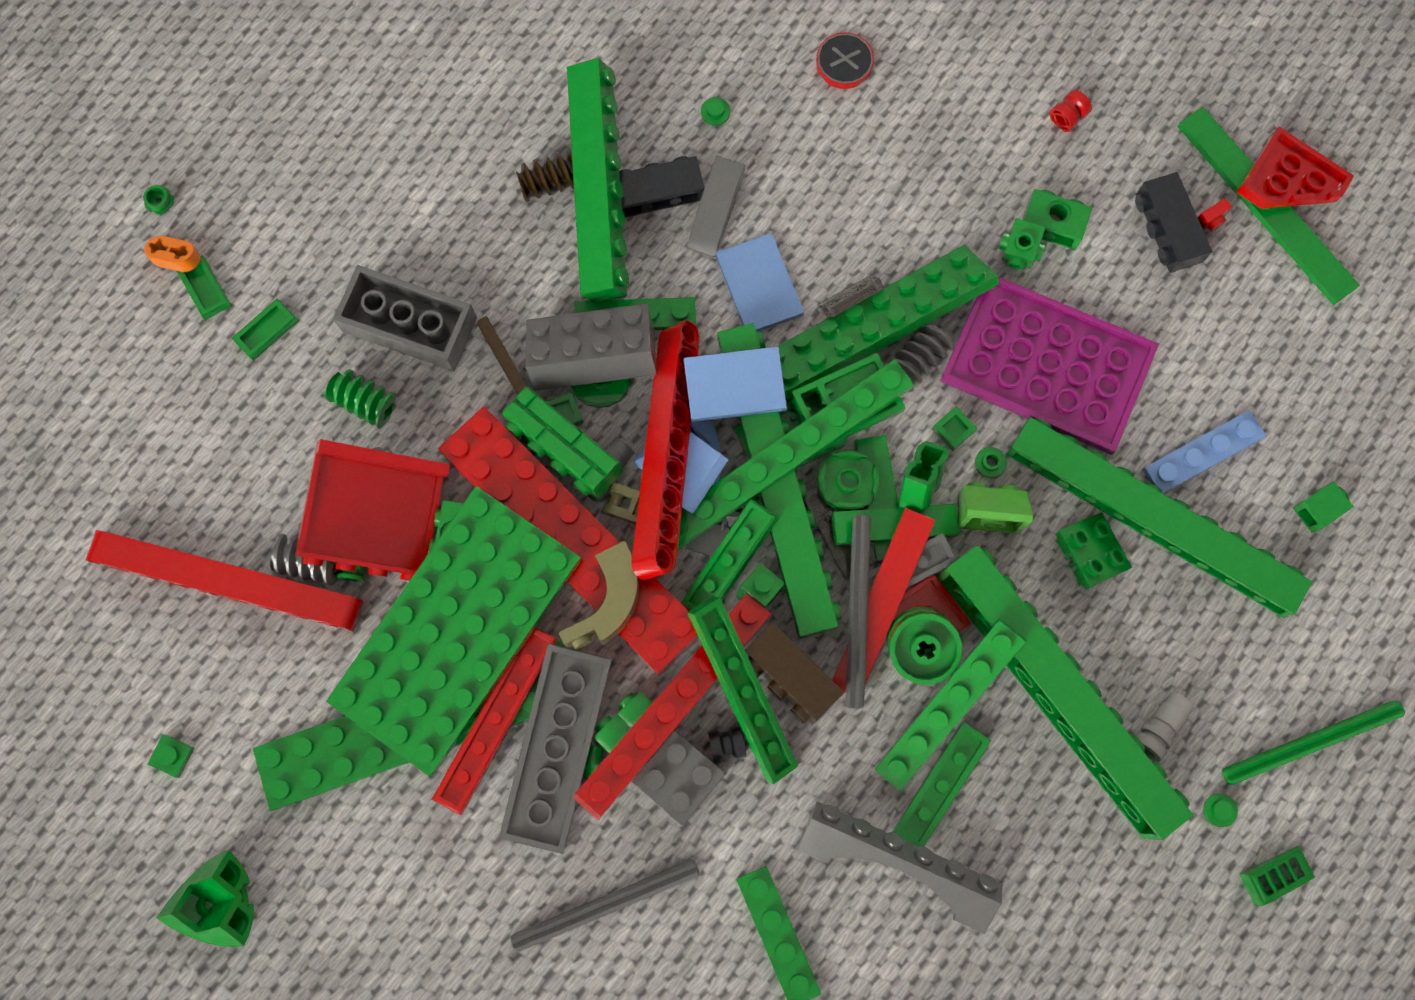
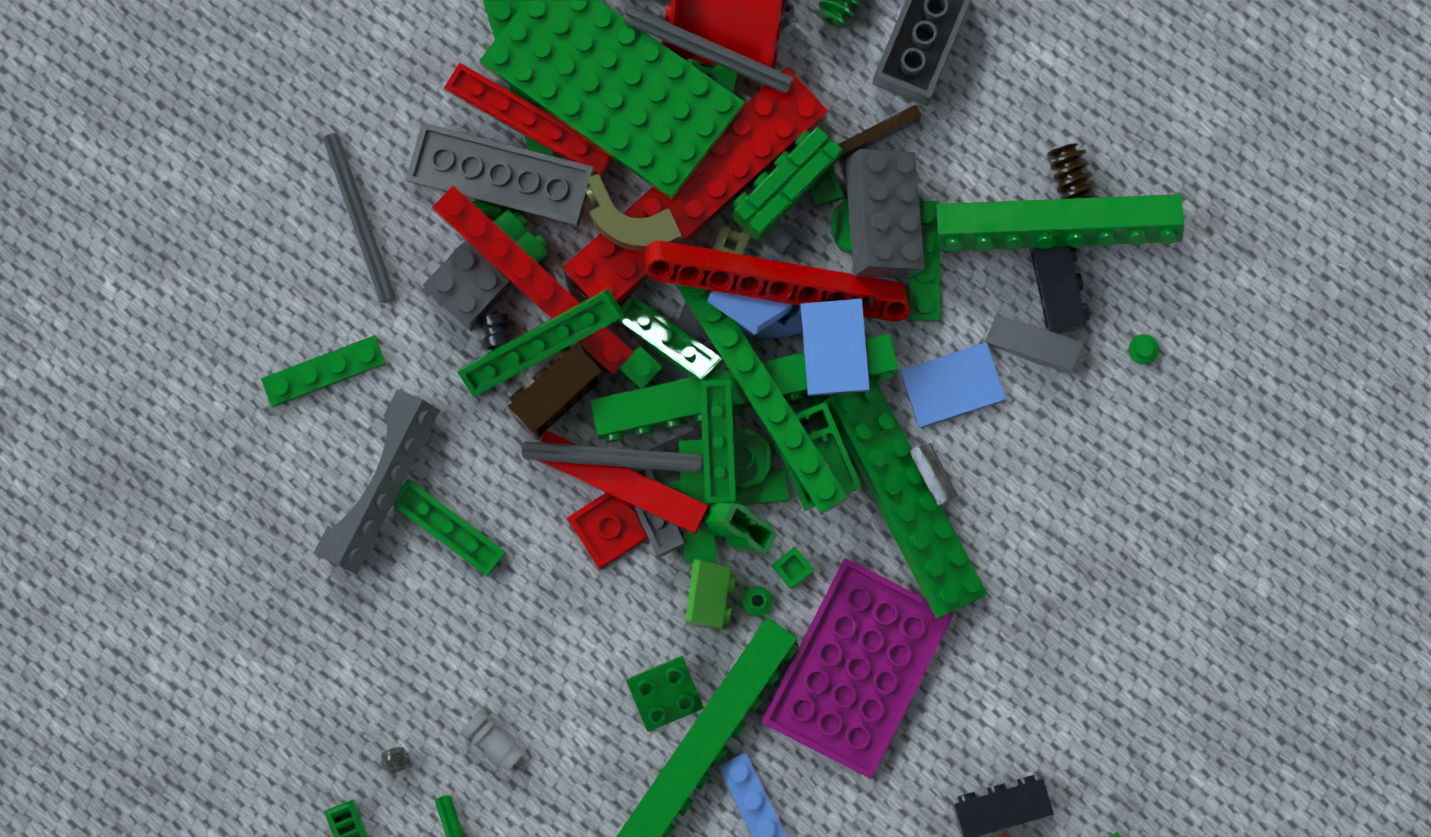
camera: 90 degrees right, 5 degrees up
(419, 528) = (708, 50): none -> dark grey axle
(837, 498) = (718, 440): none -> green plate
(844, 60) = (1199, 486): black tile -> none
(922, 351) = (866, 536): dark grey piece -> none
(926, 664) = (577, 516): green wheel -> none
(950, 704) = (519, 534): green plate -> none
(1022, 244) = (986, 659): green brick -> none
(1068, 699) = (526, 641): green brick -> none
(1073, 217) = (997, 701): green brick -> none
(1074, 107) = (1132, 716): red wheel -> none
(1196, 831) = (395, 759): none -> clear smoke plate
(1220, 810) = (412, 787): green plate -> none

